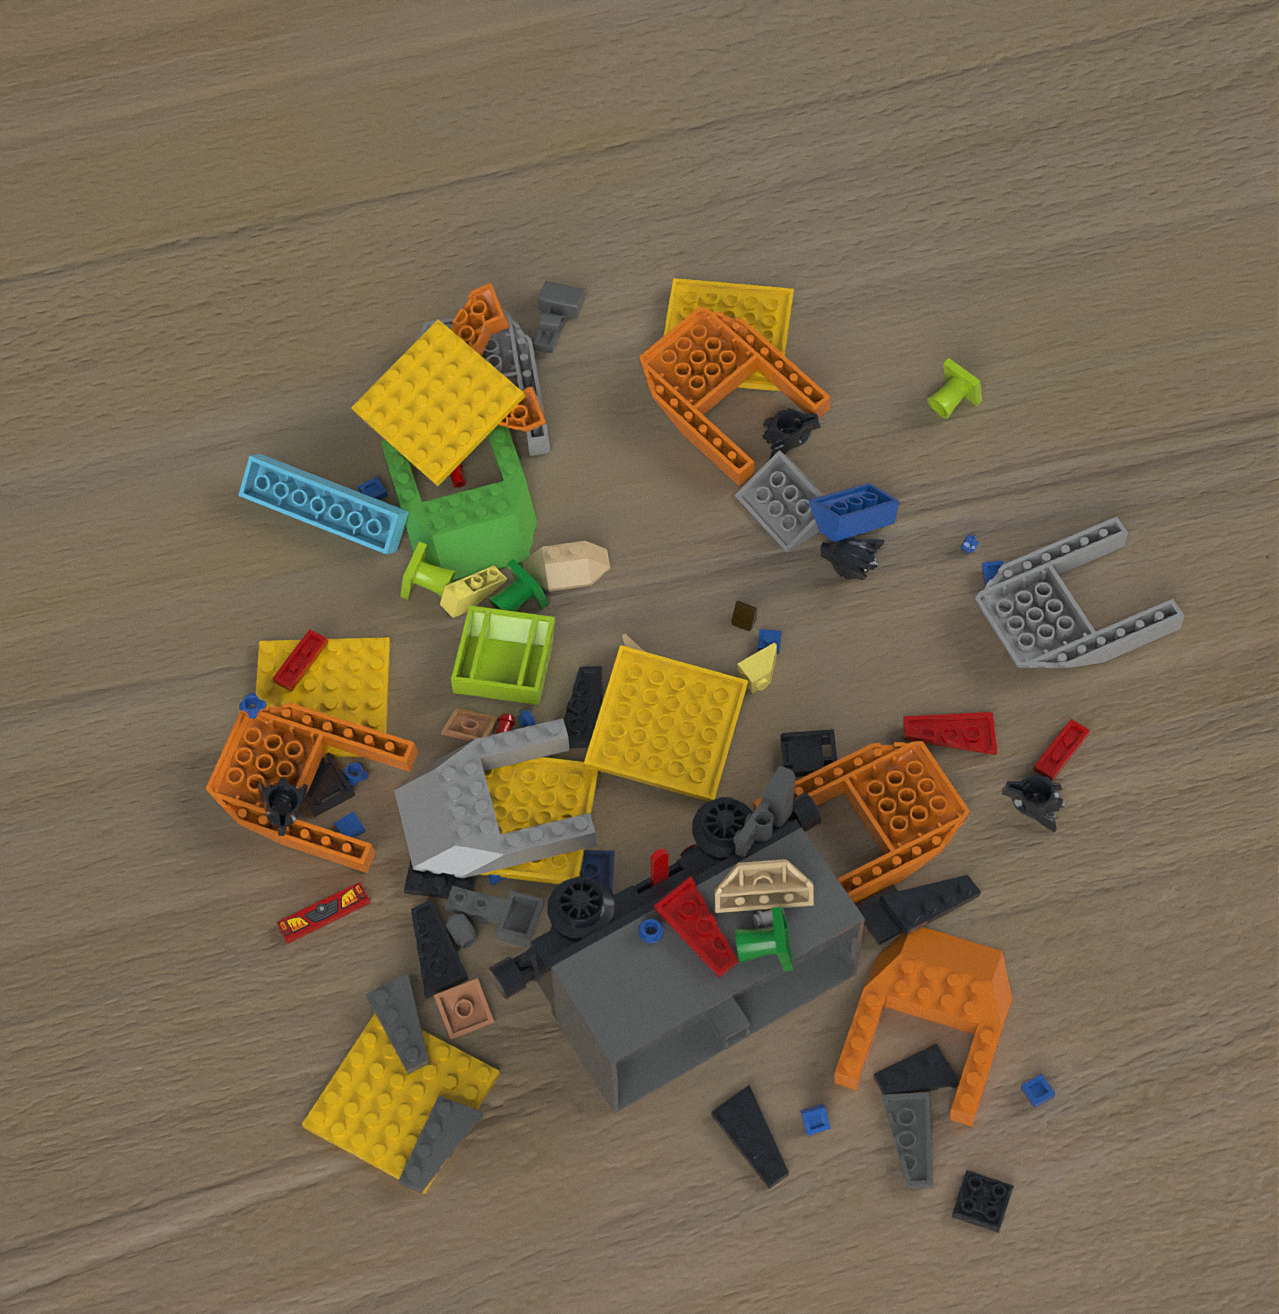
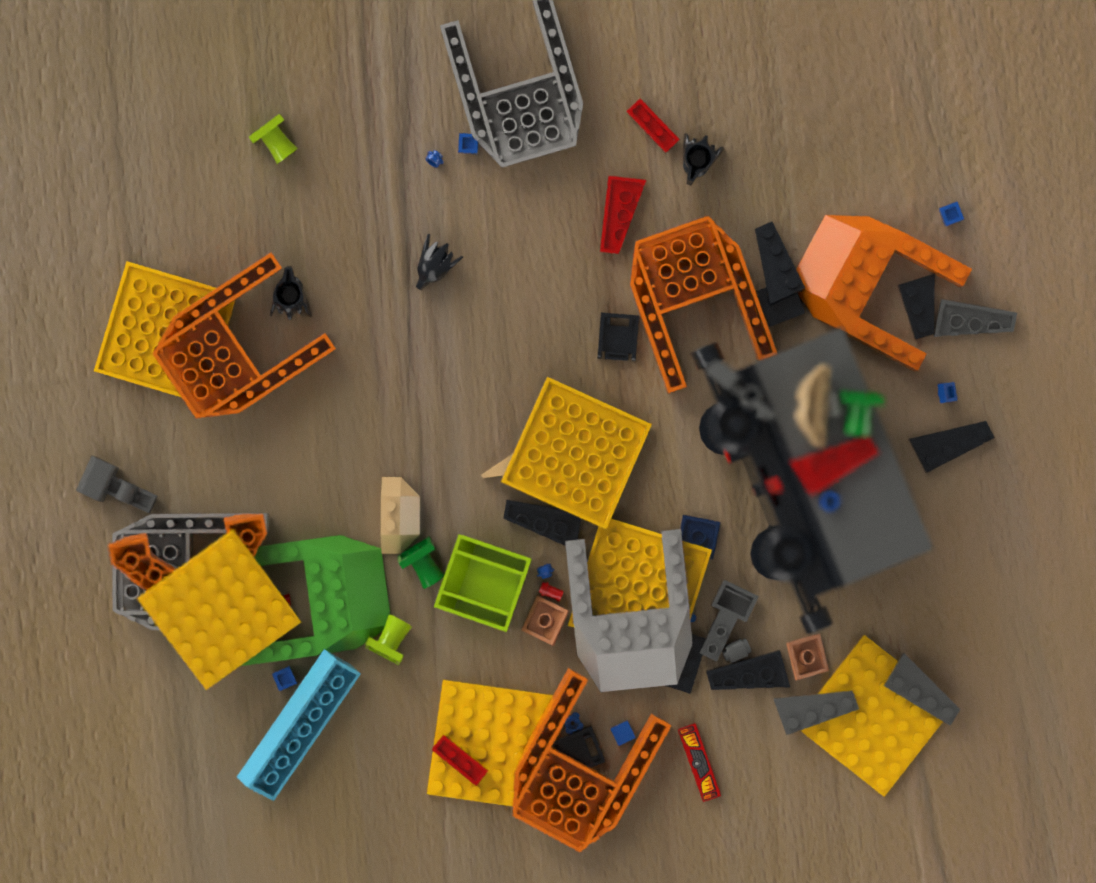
camera: 85 degrees left, 30 degrees up
(246, 704) = (519, 805): blue plate -> none
(282, 803) = (612, 788): black piece -> none
(471, 590) = (407, 601): light yellow slope -> none
(744, 616) = (475, 368): dark brown slope -> none
(758, 668) = (532, 364): light yellow slope -> none
(768, 637) = (502, 351): blue plate -> none
(780, 501) = (363, 310): light grey slope -> none
(853, 511) = (394, 254): blue slope -> none
(982, 1201) = (1031, 276): black tile -> none

